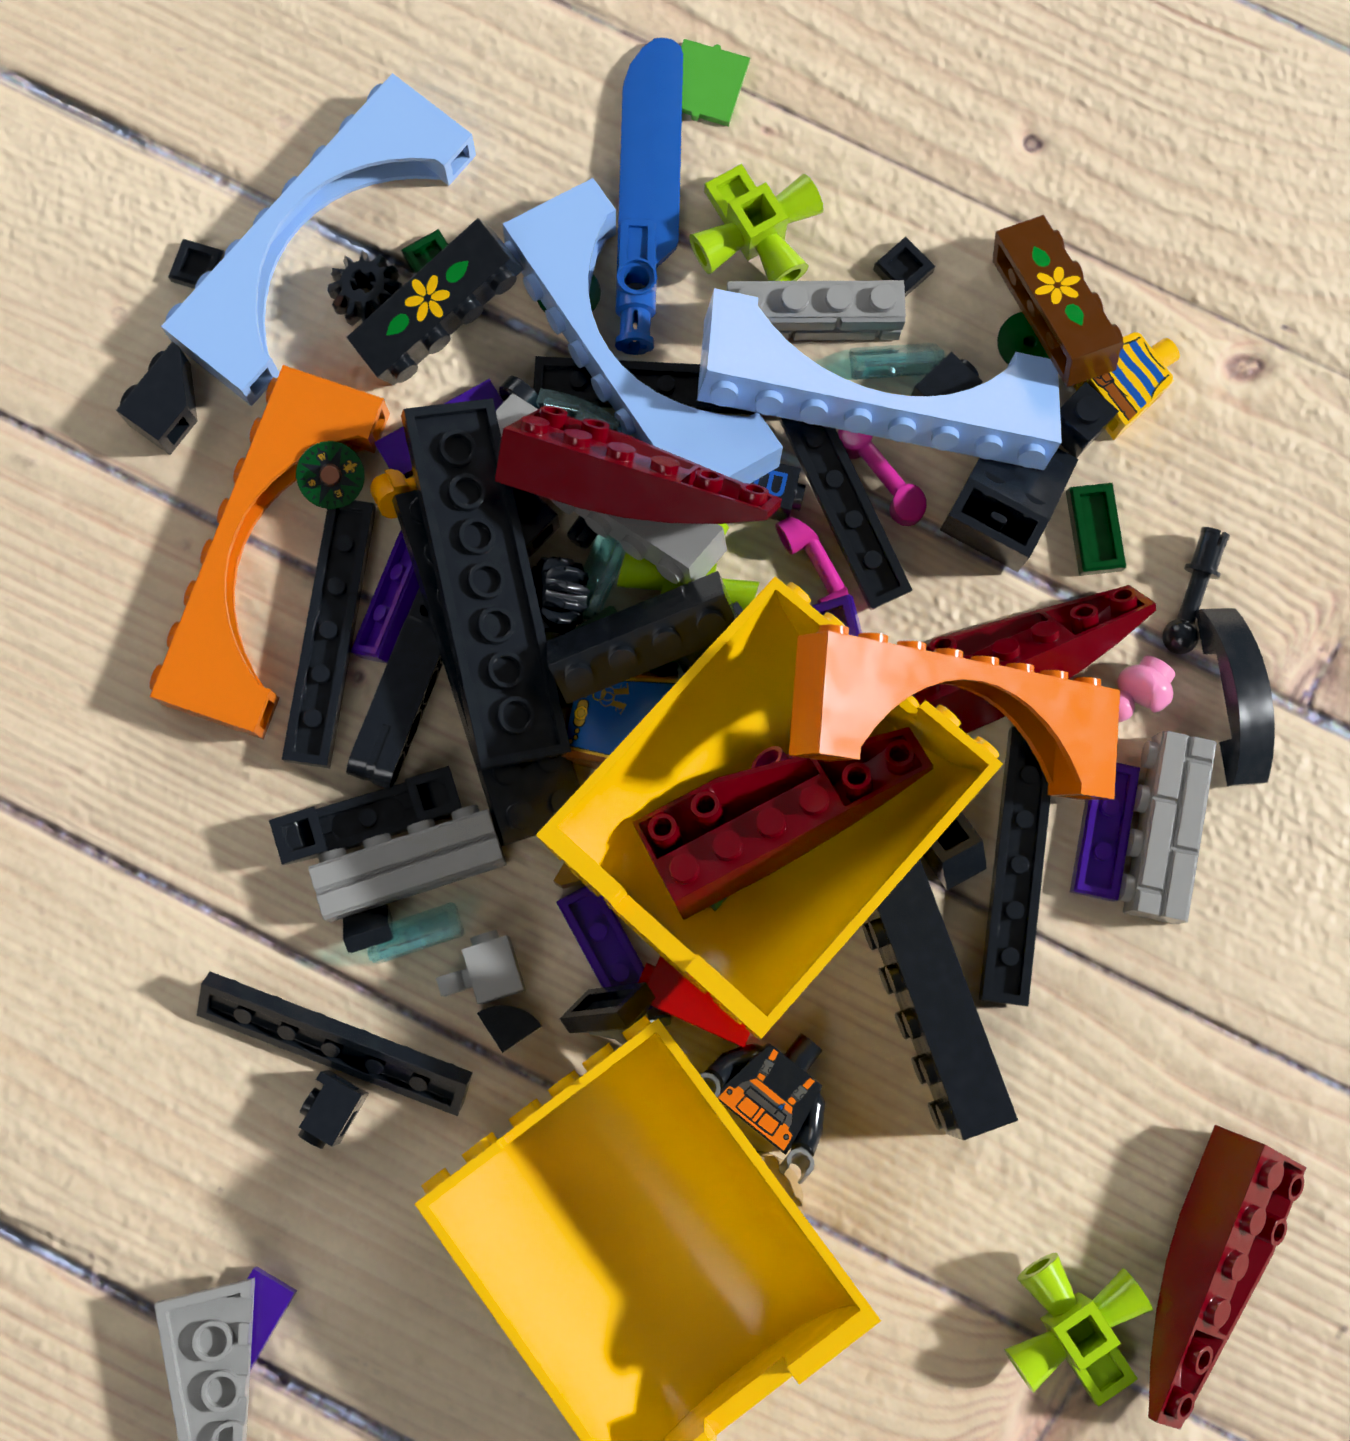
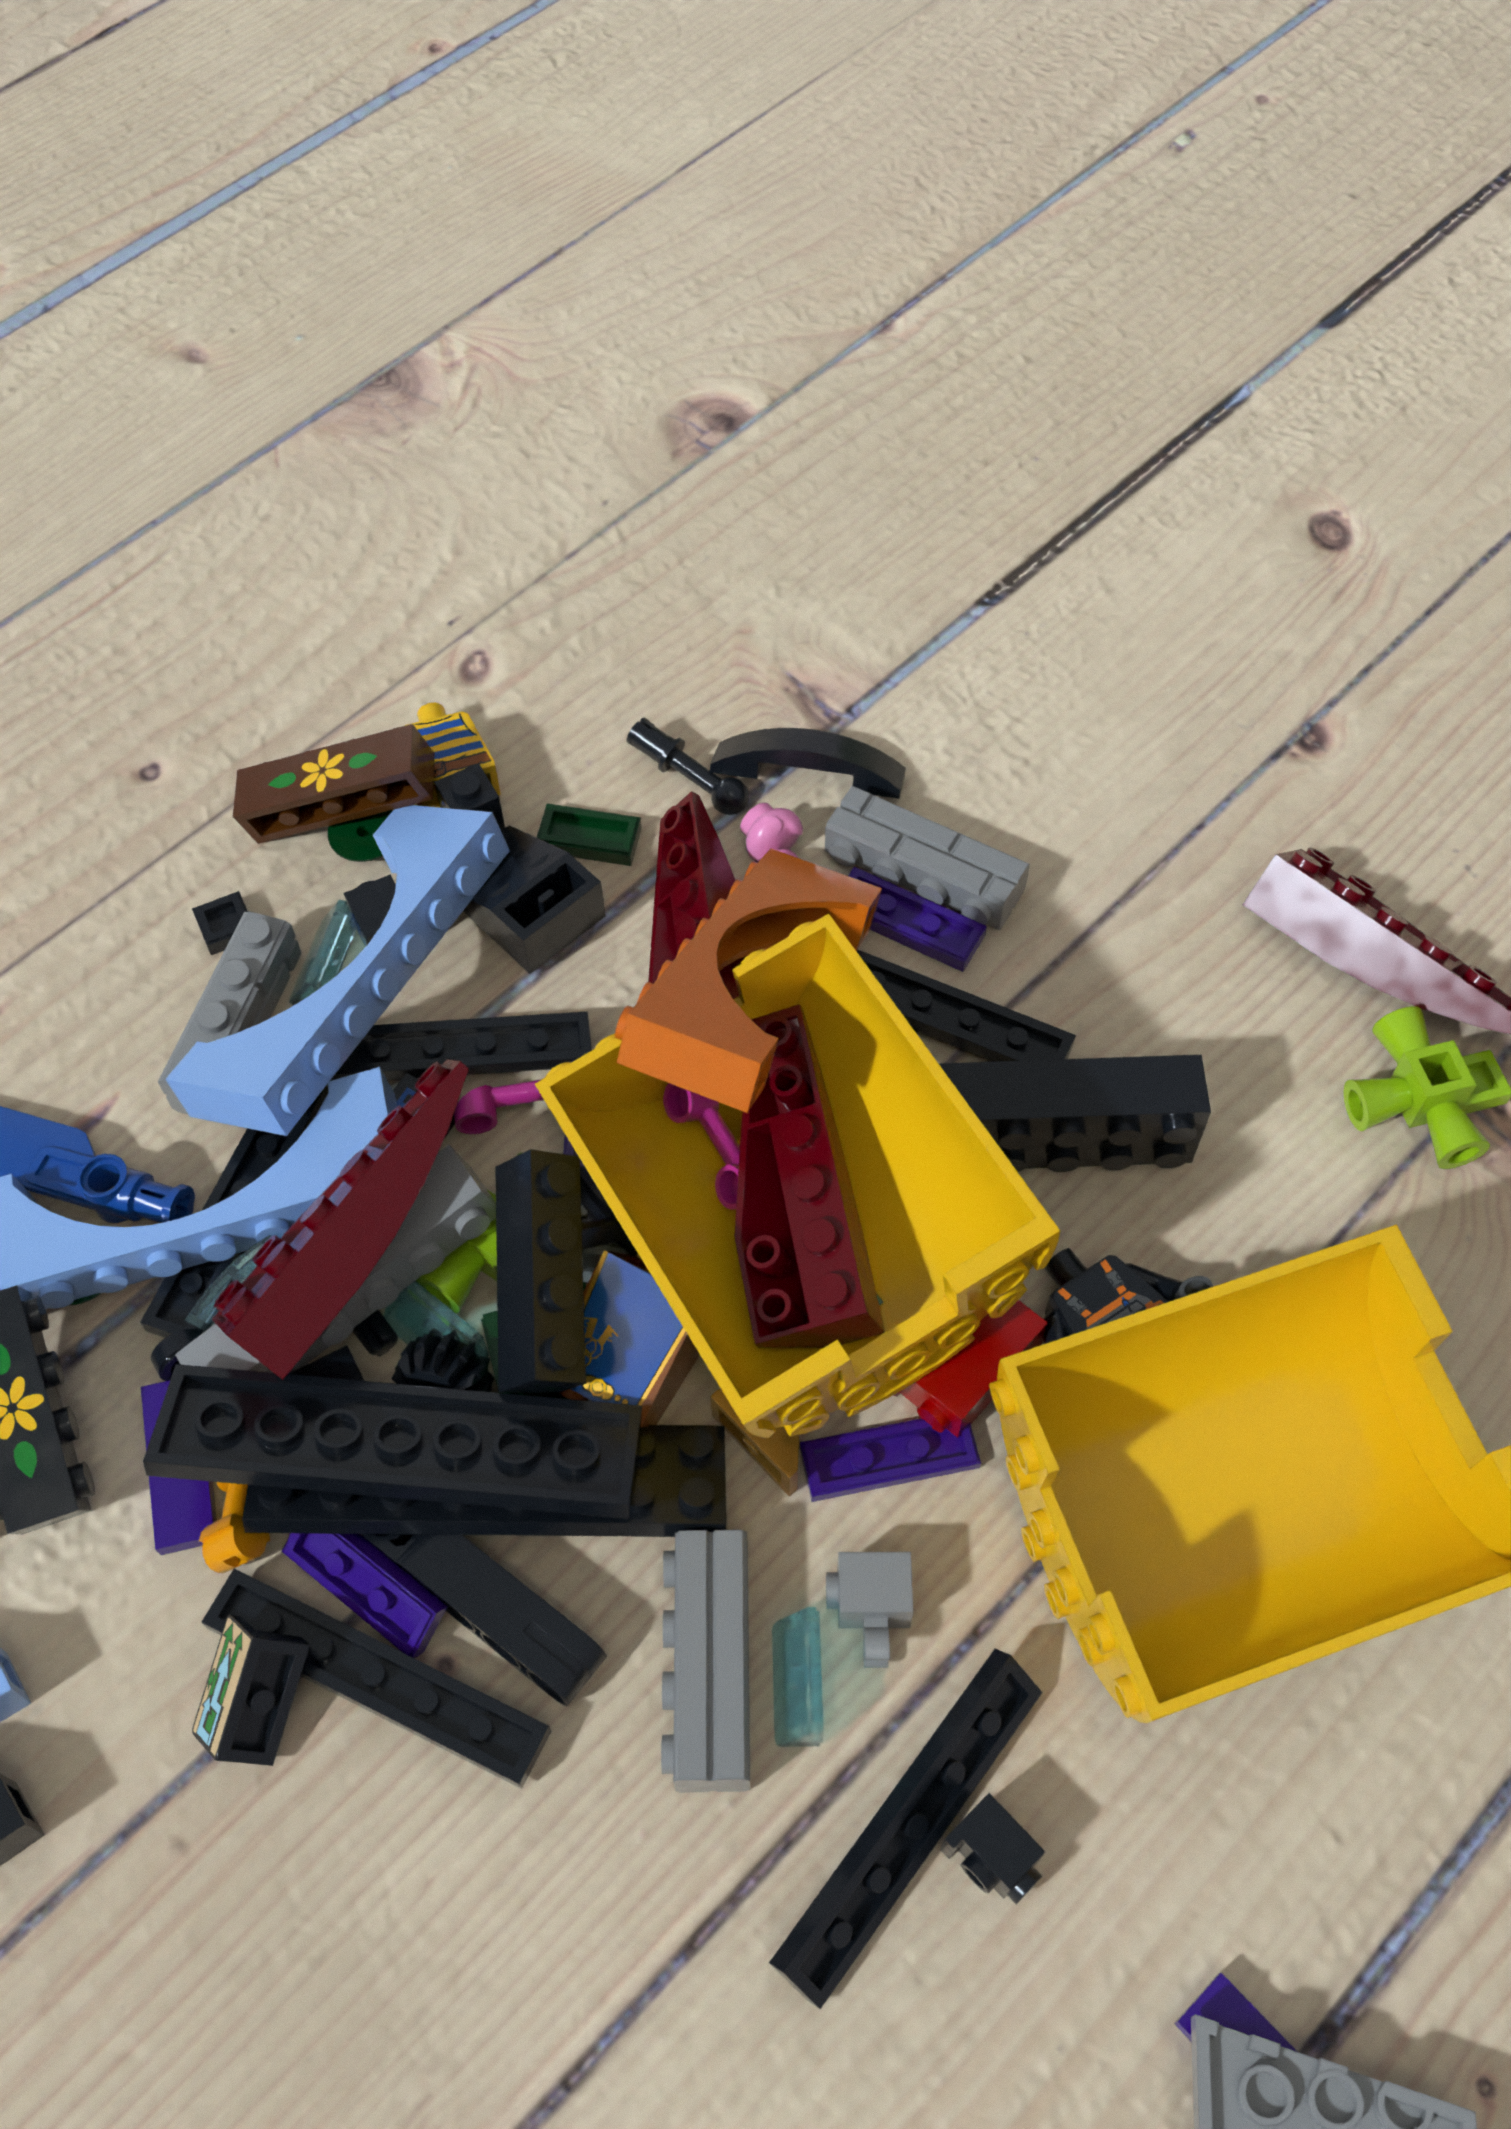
camera: 65 degrees left, 20 degrees down
(206, 660) = (356, 1849): orange arch -> none
(287, 550) = (249, 1693): none -> black panel
(330, 475) = (175, 1607): piece -> none
(351, 821) = (631, 1696): black slope -> none
(367, 928) = (775, 1733): black tile -> none
(508, 1024) = (945, 1598): black tile -> none
(611, 1011) = (965, 1457): black piece -> none
(756, 223) = (101, 1043): lime brick -> none
(908, 499) = (485, 991): dark pink bar -> none

